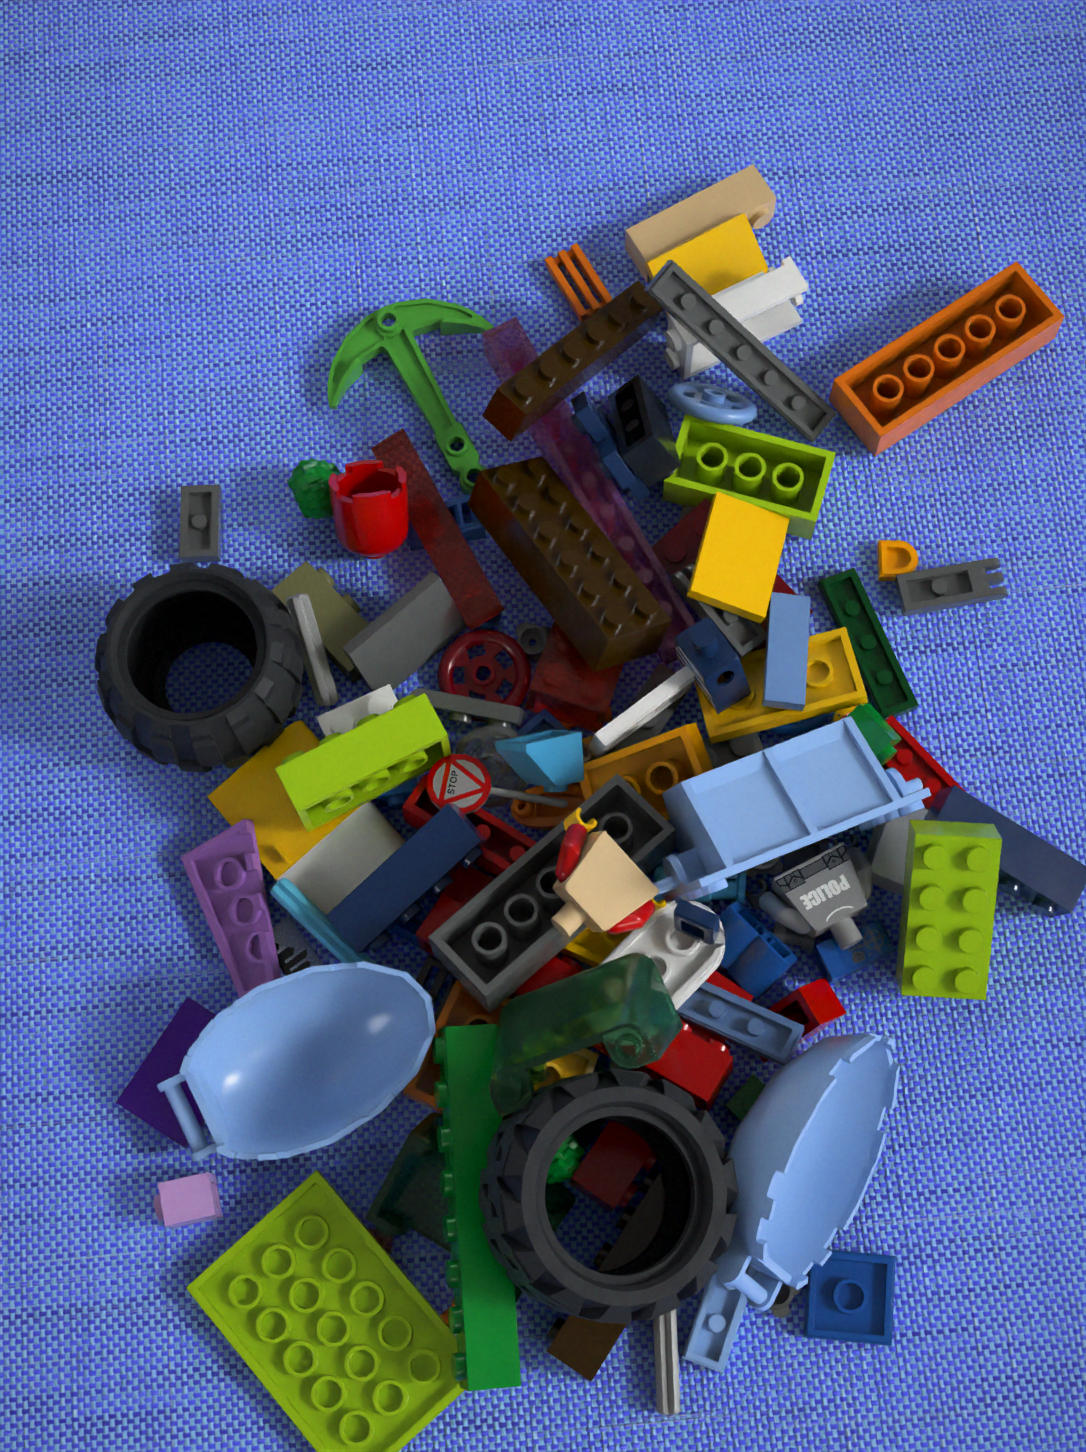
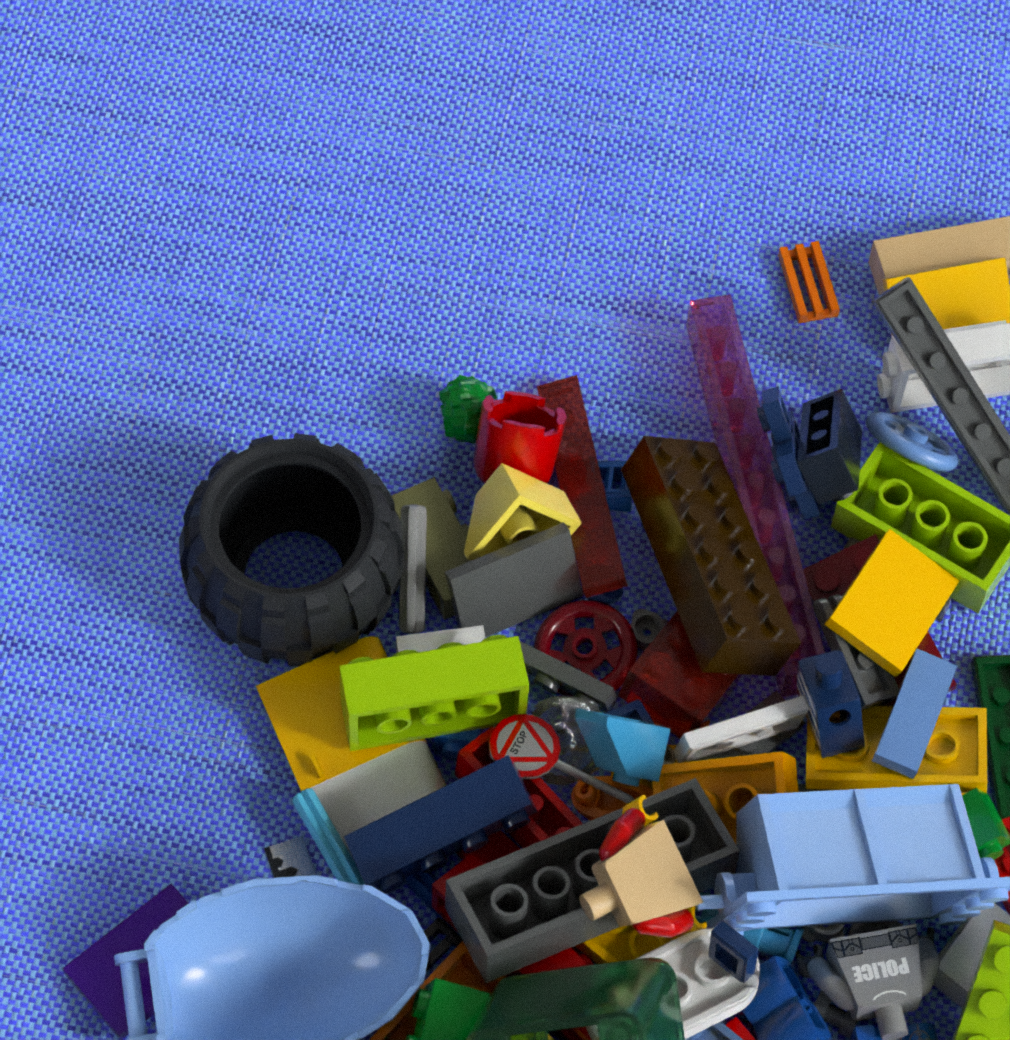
camera: 10 degrees right, 10 degrees down
(200, 523) = (336, 406): dark grey plate -> none
(235, 904) = (251, 797): medium lavender wing -> none
(385, 571) = (514, 508): none -> light yellow slope
(398, 343) = (600, 295): bright green piece -> none
(571, 361) = (776, 354): dark brown brick -> none

